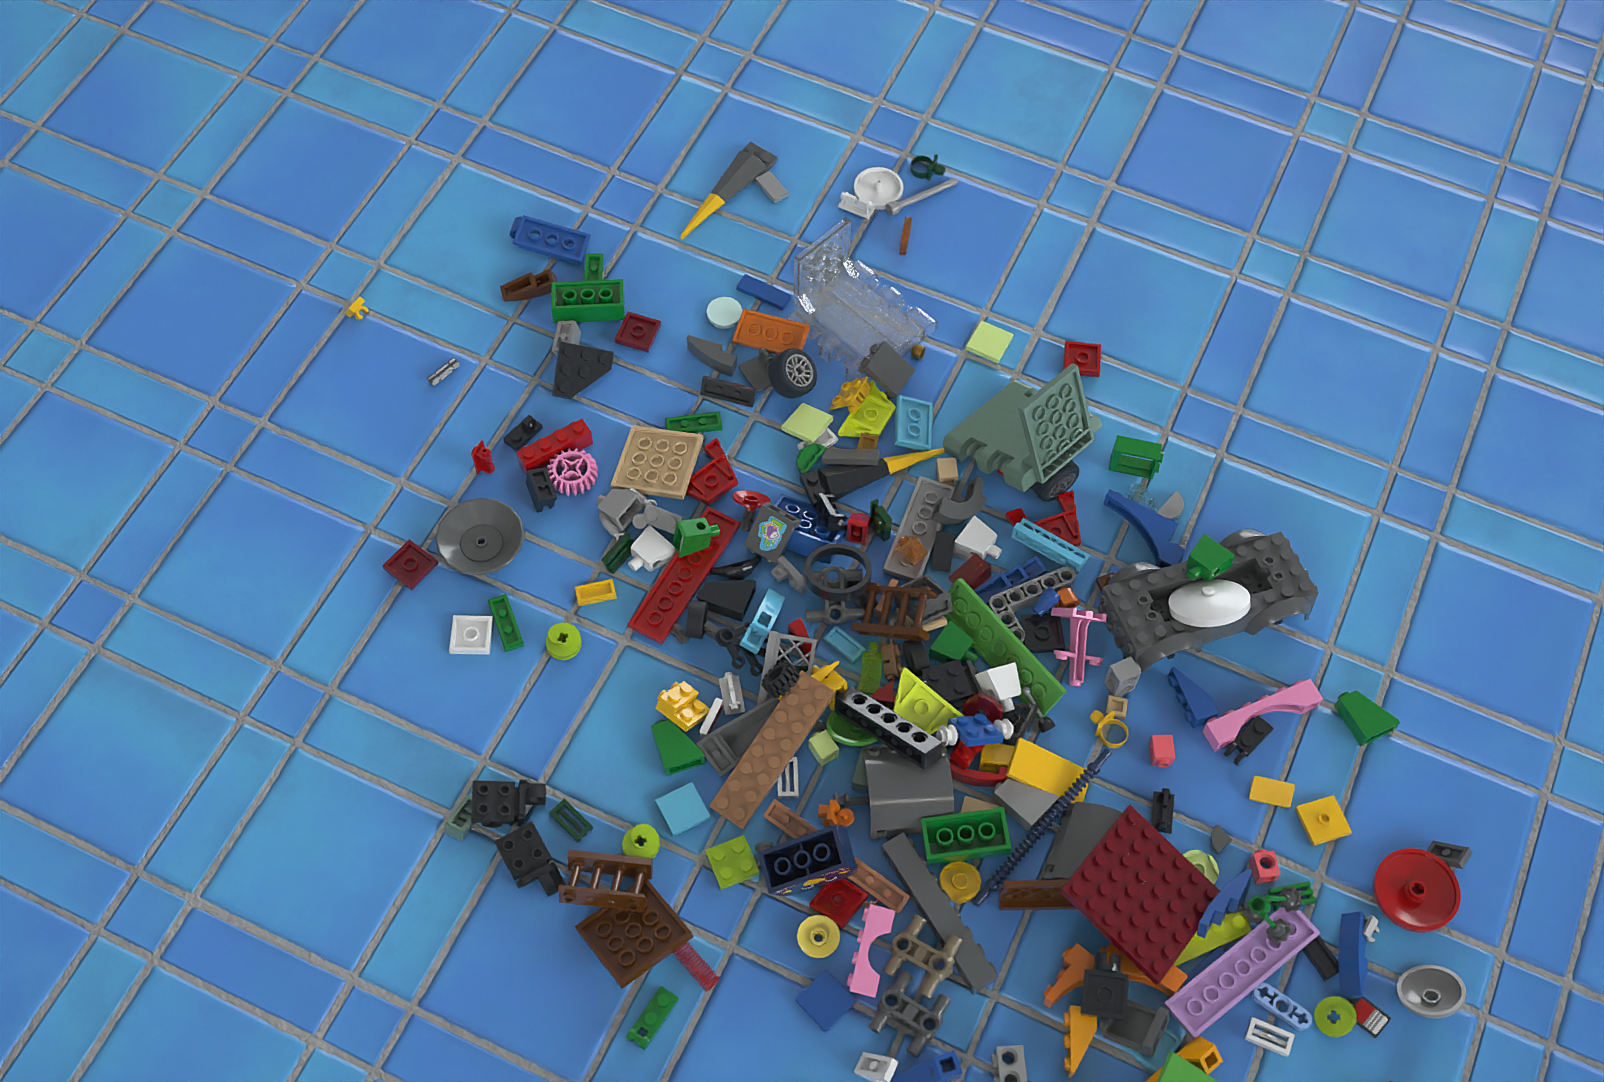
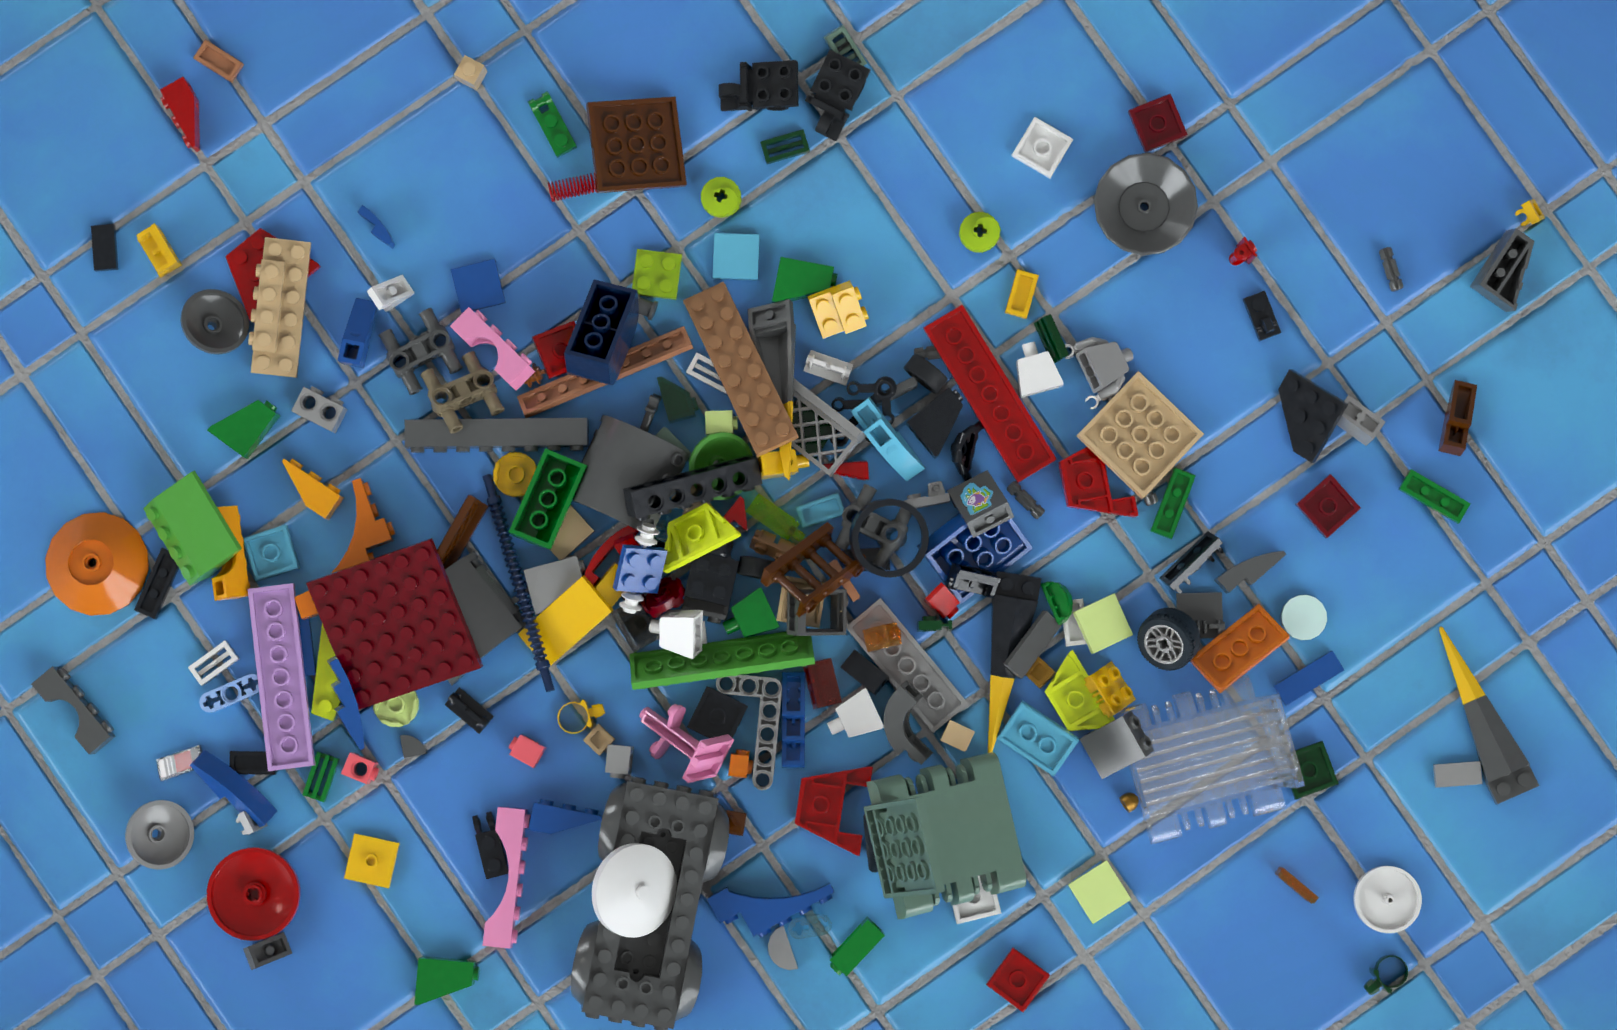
camera: 125 degrees right, 25 degrees up
(406, 303) = (1504, 270): none -> dark grey wedge
(505, 623) = (1036, 188): green tile -> none
(525, 226) = (1544, 452): blue hinge -> none
(540, 452) = (1220, 337): red brick -> none
(540, 488) = (1175, 298): black hinge -> none
(571, 478) = (1176, 331): bright pink gear -> none
(588, 301) = (1397, 469): green slope -> none
(611, 865) = (721, 147): reddish brown fence -> none
(658, 518) = (1065, 398): light grey hinge -> none
(693, 535) = (1020, 410): green torso -> none
(711, 718) = (811, 331): white tile -> none
(750, 499) = (1041, 505): red dish -> none
(780, 679) = (802, 411): black tyre -> none
(818, 926) = (533, 300): light yellow dish -> none
(826, 784) = (677, 401): none -> clear green slope
(835, 815) = (639, 390): orange hips -> none
(857, 206) = (1373, 856): white hinge -> none
(894, 207) = (1347, 899): light grey piece -> none
(1044, 723) = (620, 655): hinge -> none
(1046, 601) = (743, 738): blue cone -> none
(1064, 556) = (802, 778): medium azure fence -> none
(1105, 989) = (331, 532): black plate -> none
(1140, 1030) = (292, 544): dark grey panel -> none
(1208, 559) = (679, 919): green torso -> none
(1259, 907) = (320, 728): dark grey plant -> none
(1271, 791) = (426, 829): yellow slope -> none
(1326, 1024) = (192, 732): lime piece -> none

